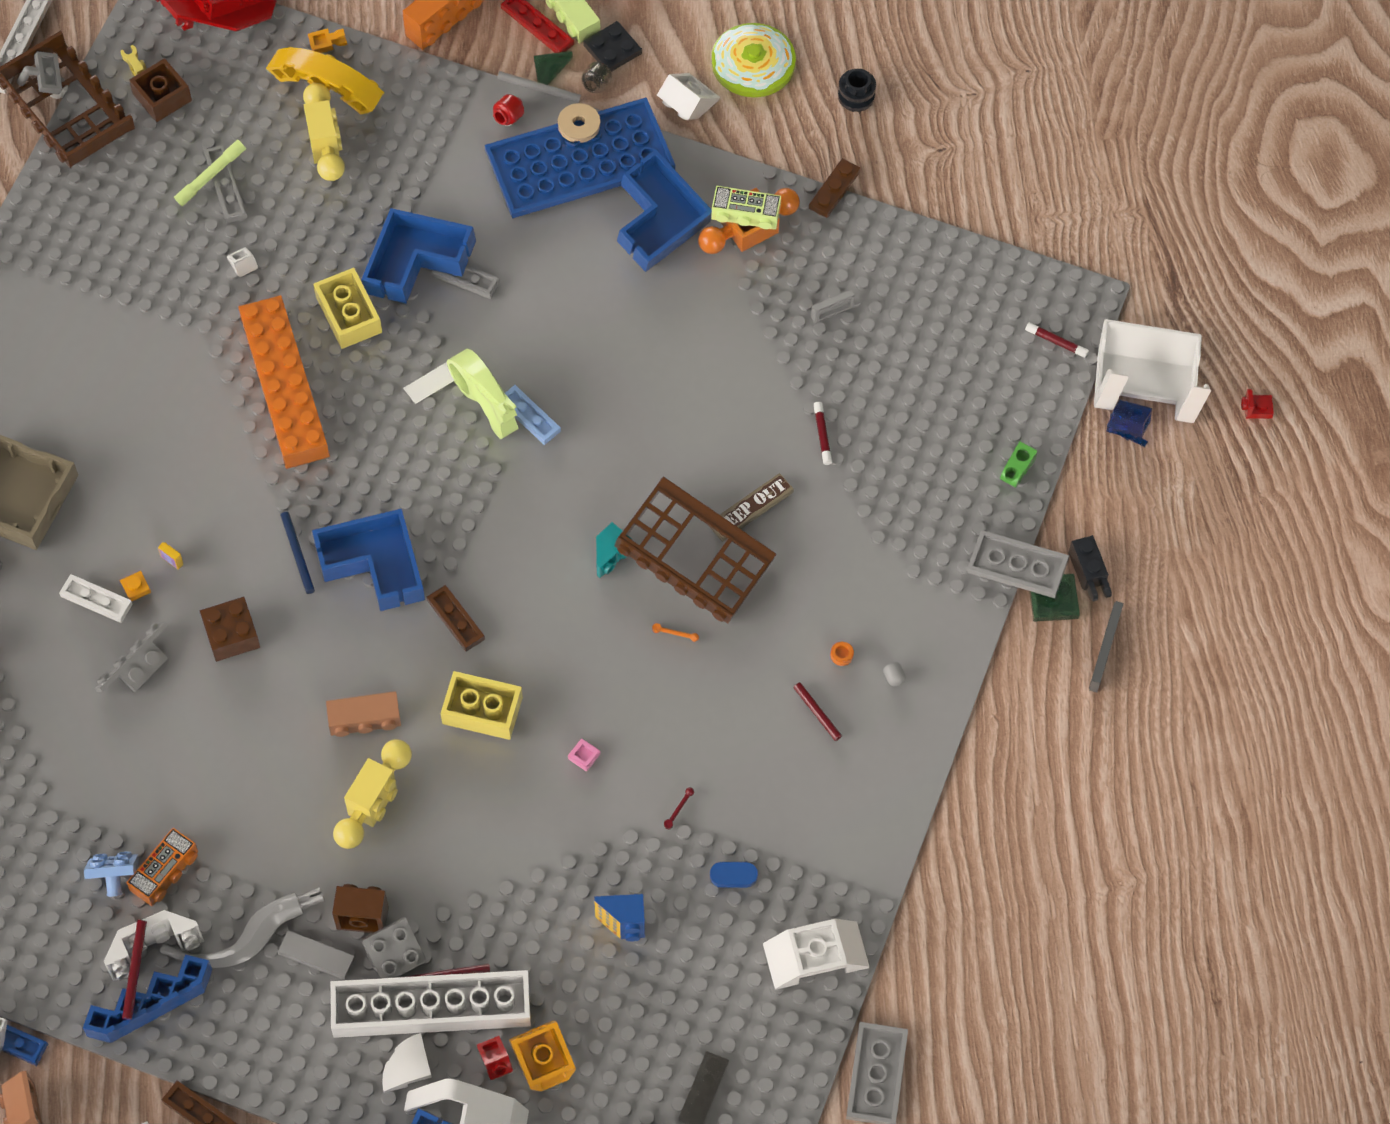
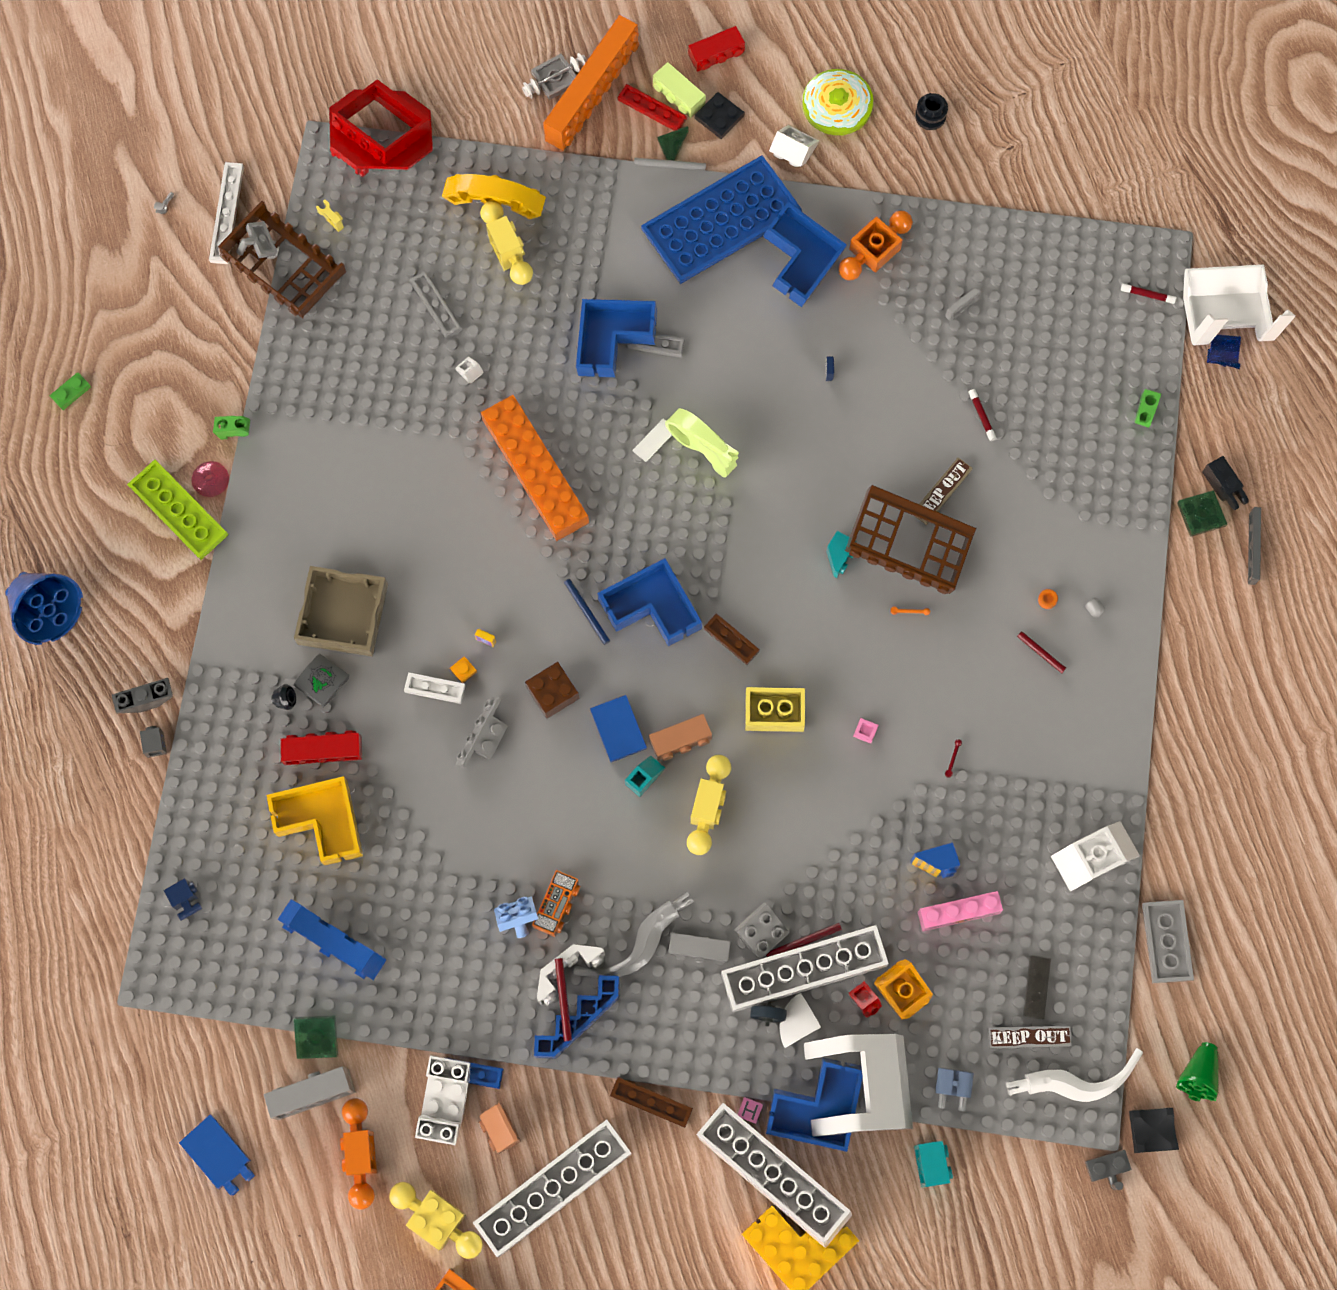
camera: 10 degrees left, 10 degrees up
(160, 90) = (359, 234): reddish brown brick -> none
(191, 189) = (409, 317): yellowish green piece -> none
(294, 689) = (618, 728): none -> blue tile
(307, 746) = (644, 775): none -> teal slope
(323, 41) = (481, 162): light orange plate -> none
(347, 308) = (569, 392): light yellow brick -> none
(360, 908) = (727, 903): reddish brown brick -> none
(373, 1045) = (768, 1013): none -> black wheel
(508, 110) = (651, 190): red head -> none
(532, 416) = (747, 454): light blue plate -> none
(579, 112) = (714, 179): tan tile -> none
(596, 77) = (714, 145): clear smoke head -> none
(634, 980) = (960, 911): none -> bright pink brick
(657, 344) = (829, 367): none -> dark blue tile
(733, 874) = (1012, 804): blue tile -> none
(746, 207) = (875, 236): brick -> none
(834, 188) = (935, 201): reddish brown plate -> none
(1018, 564) = (1169, 492): light grey plate -> none
(1257, 406) = (1320, 314): red bracket -> none

